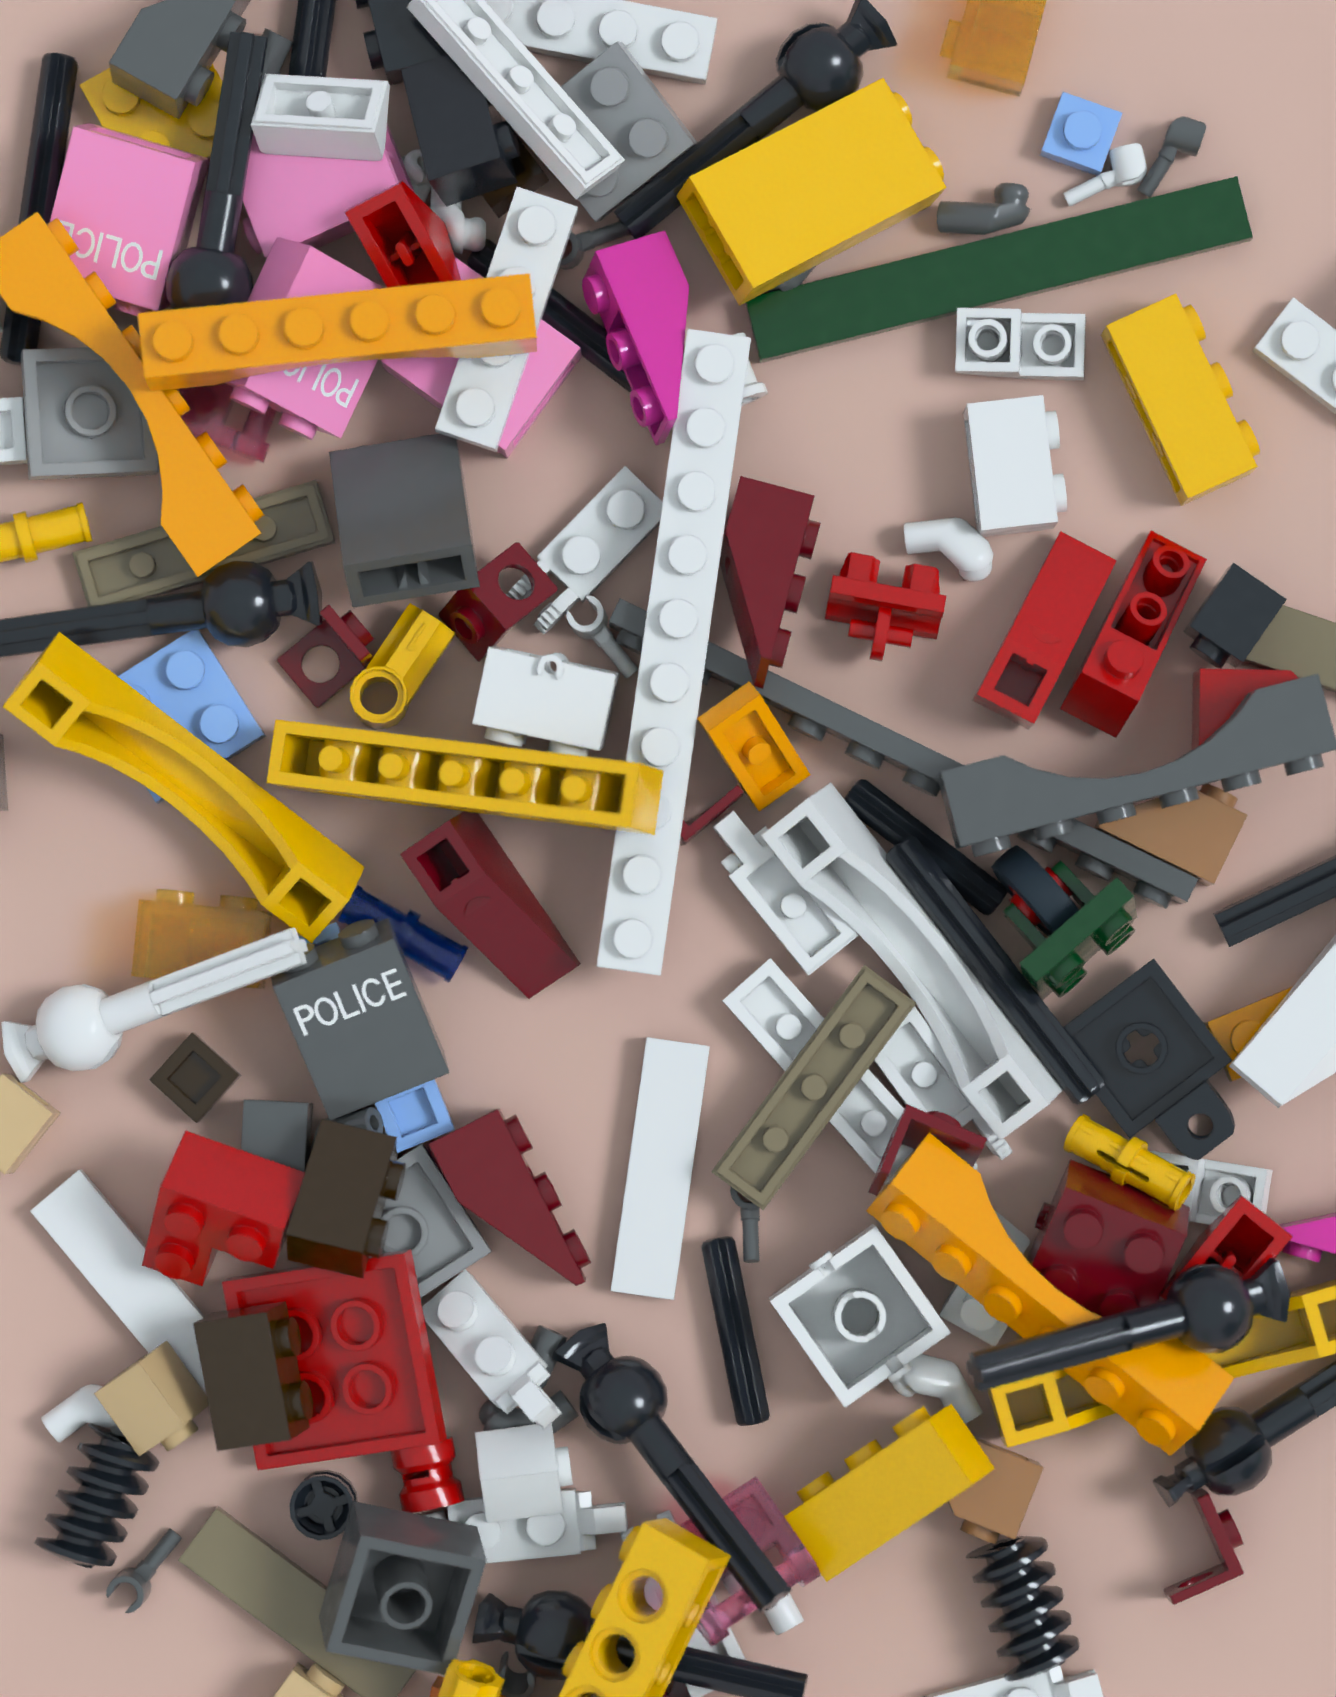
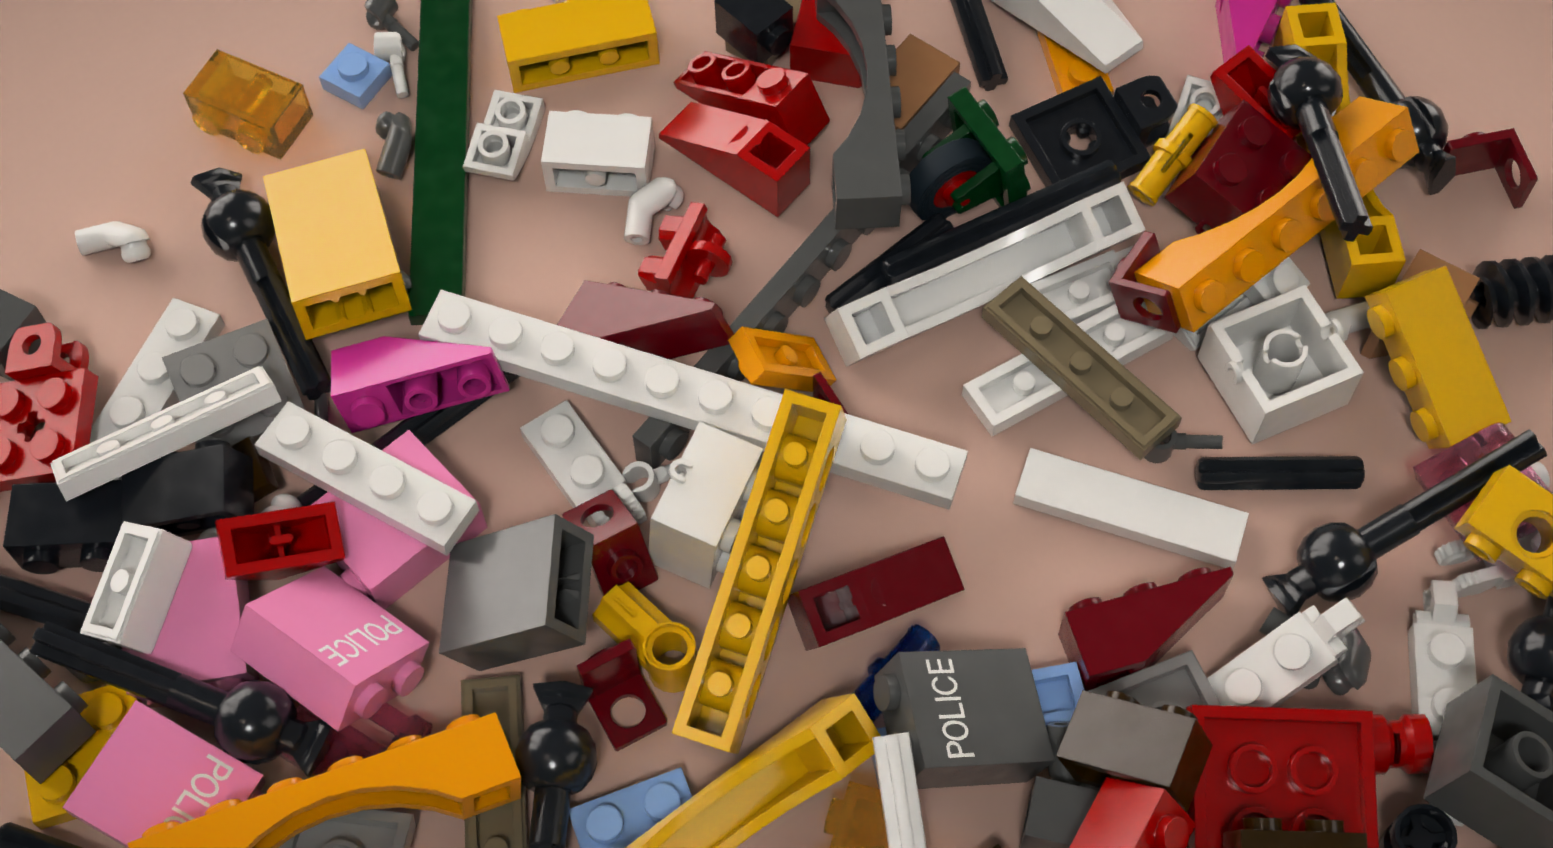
camera: 80 degrees left, 25 degrees down
(290, 333) = (307, 681): light orange arch -> none
(521, 1472) = (1398, 658): white brick -> none
(793, 914) = (910, 370): white hinge -> none

